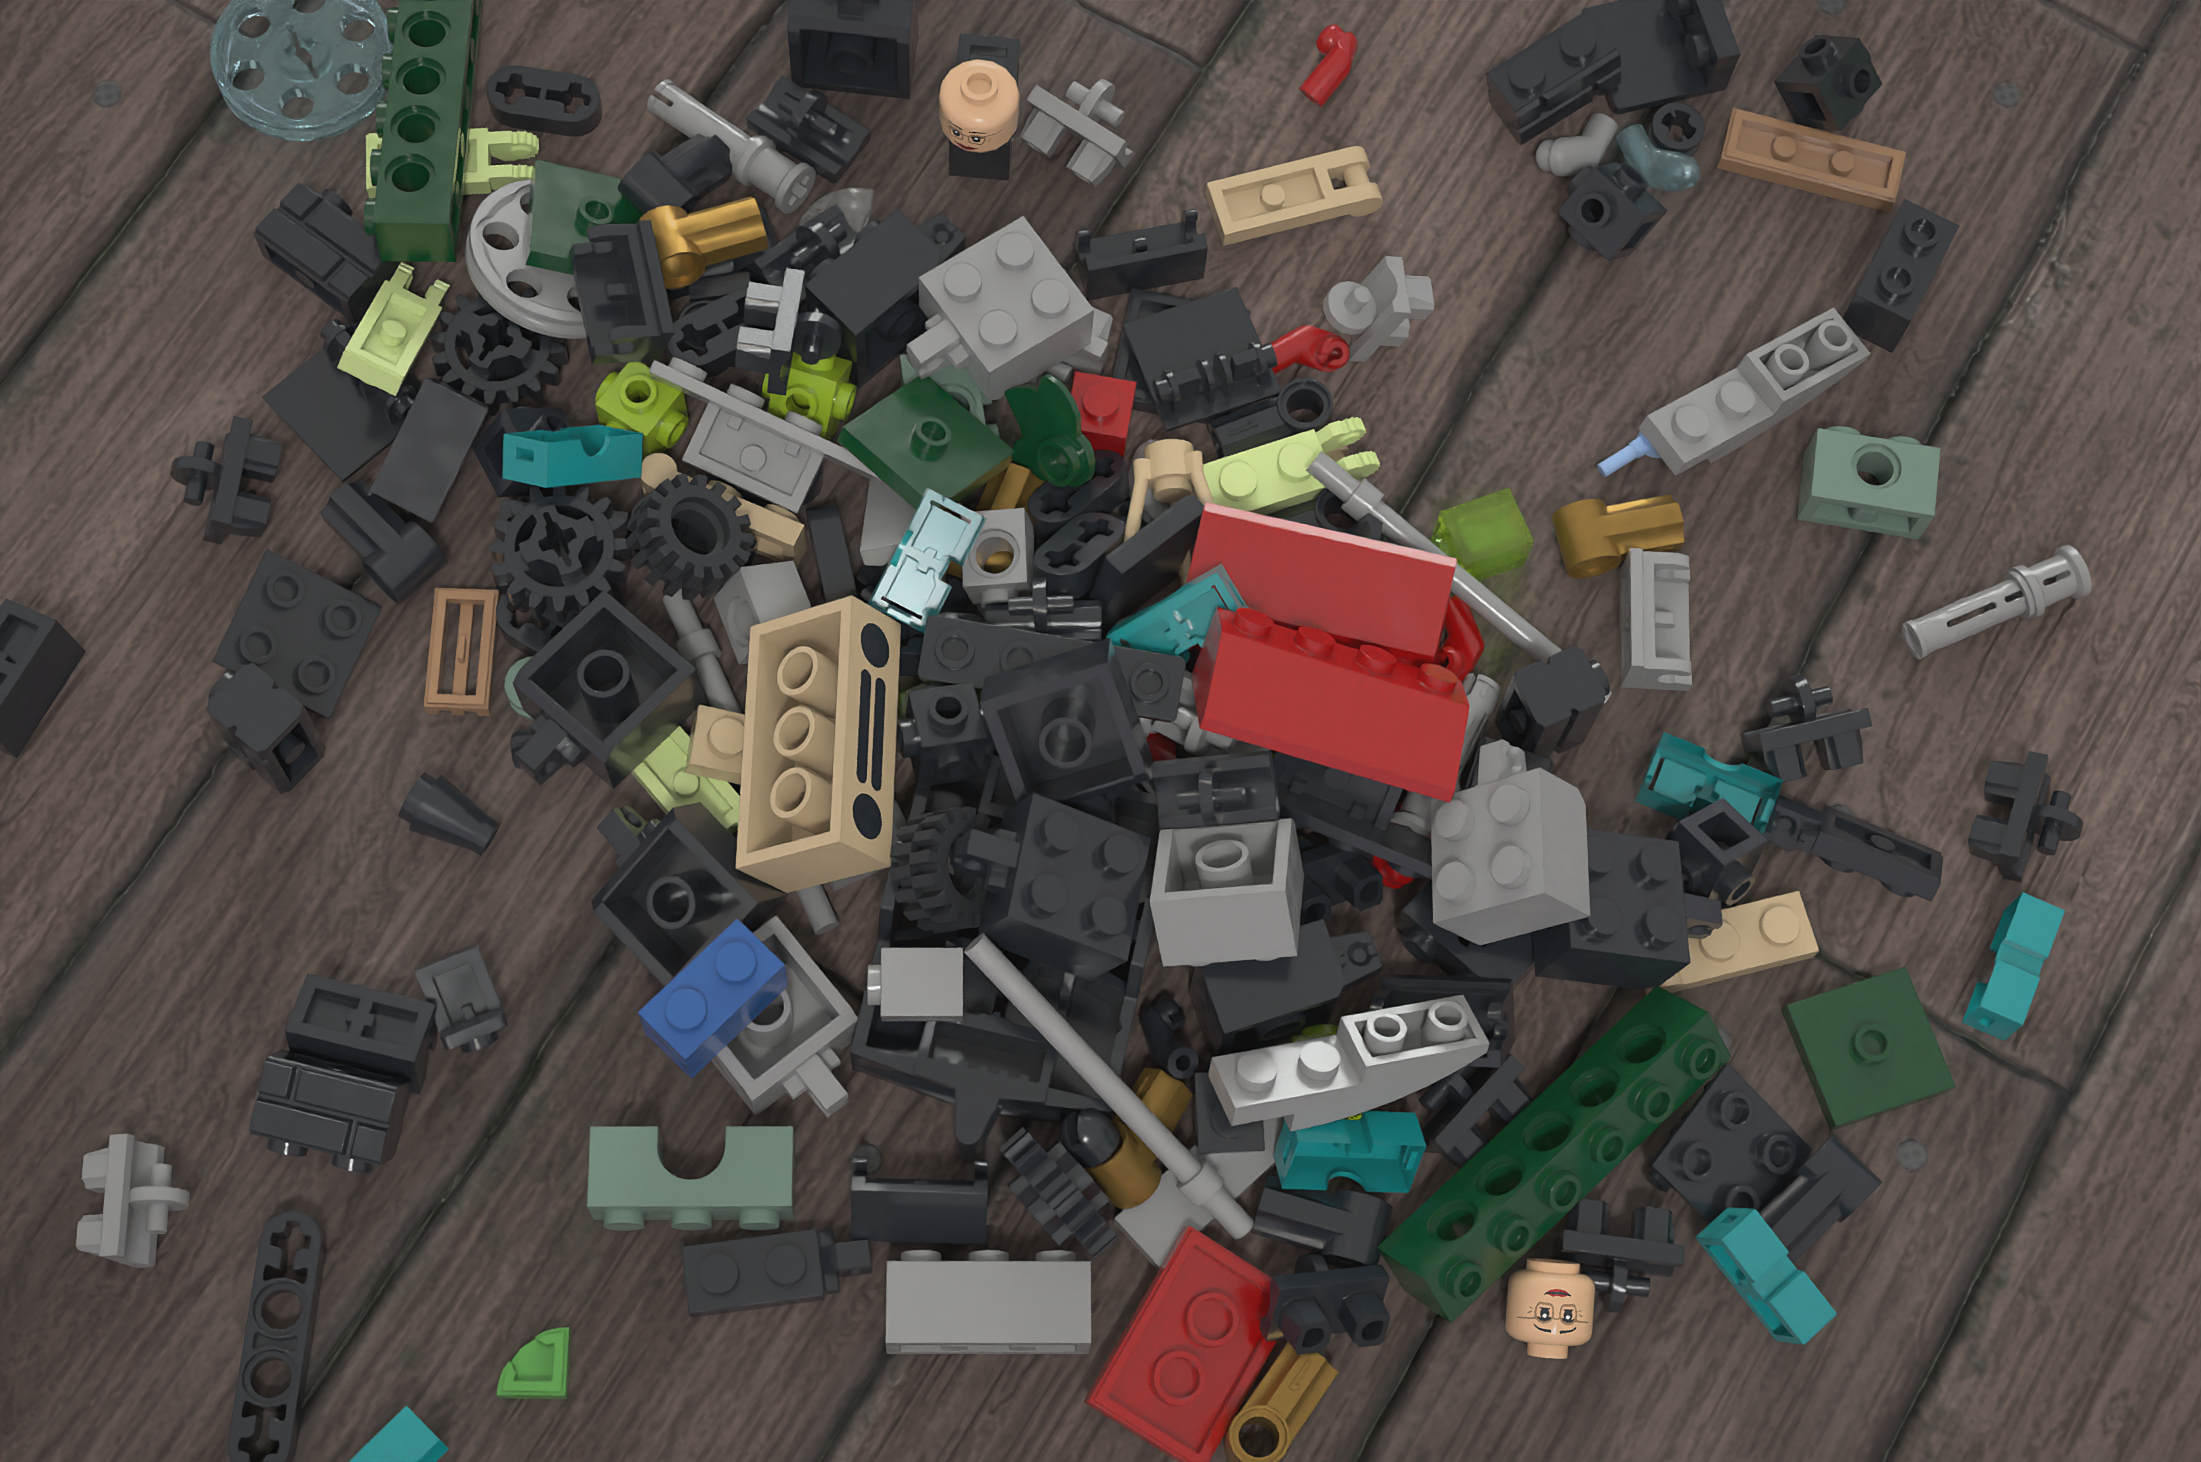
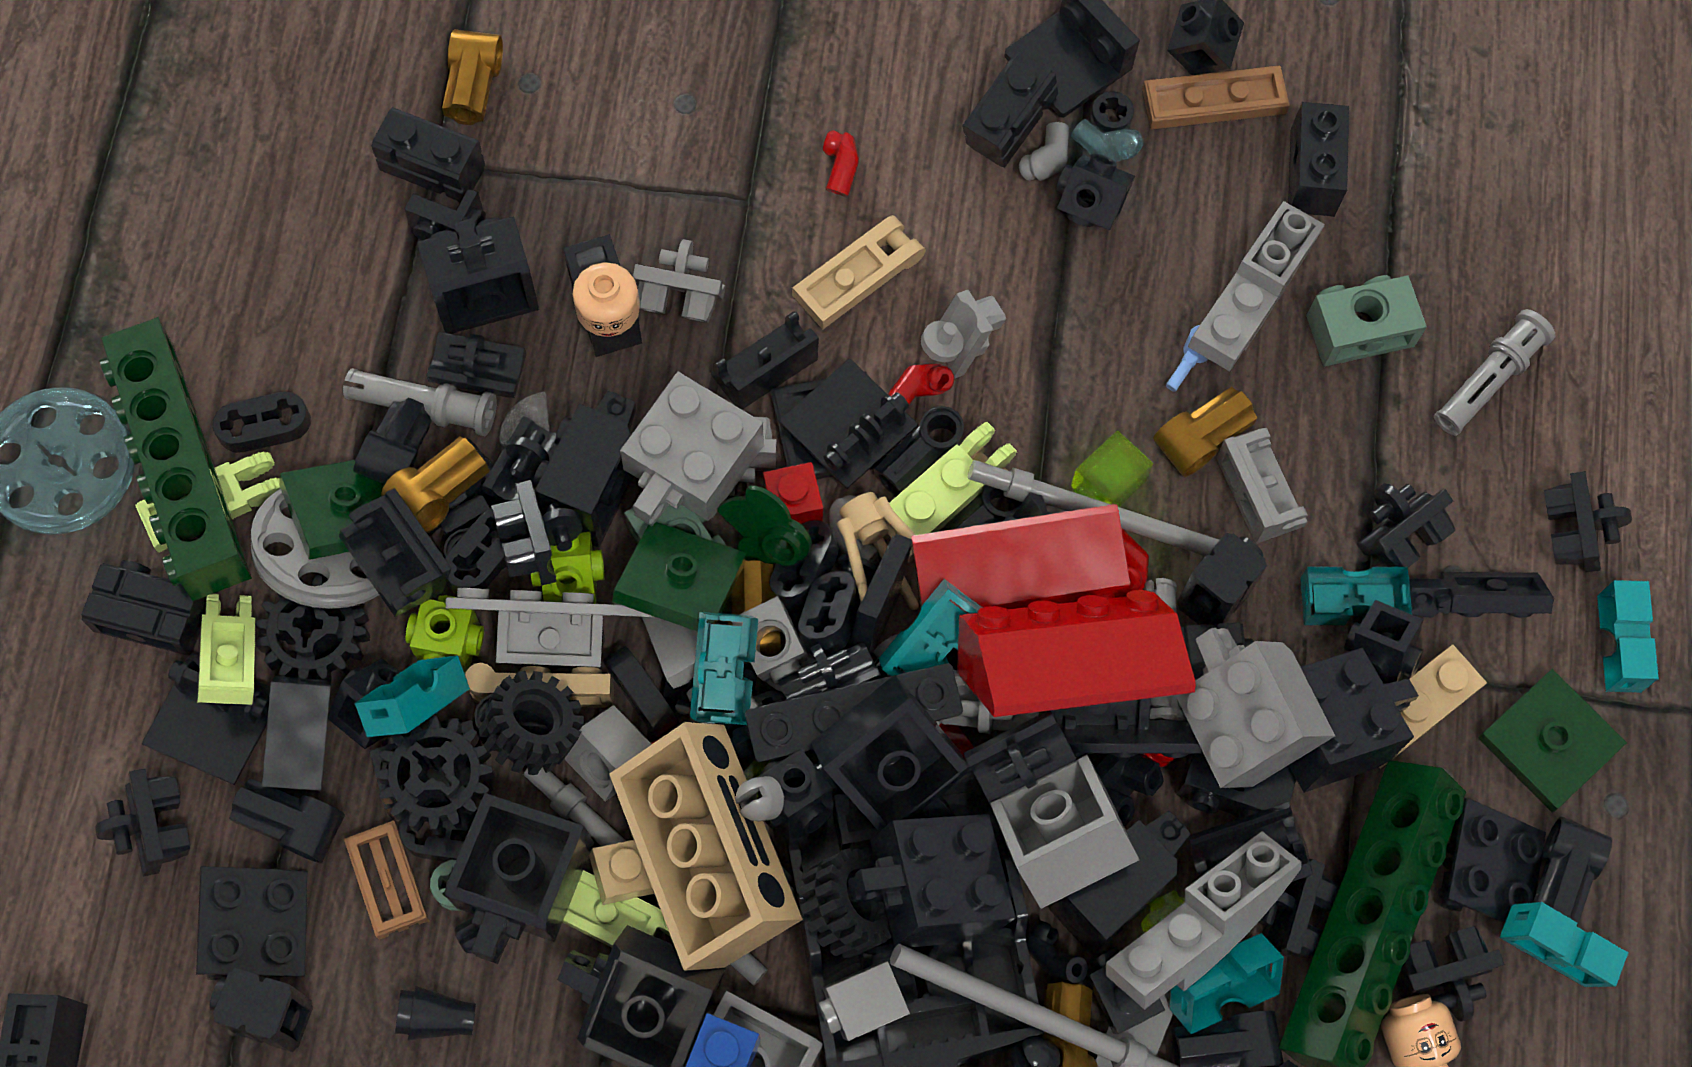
camera: 20 degrees left, 0 degrees up
(899, 714) = (764, 808): none -> light grey hinge

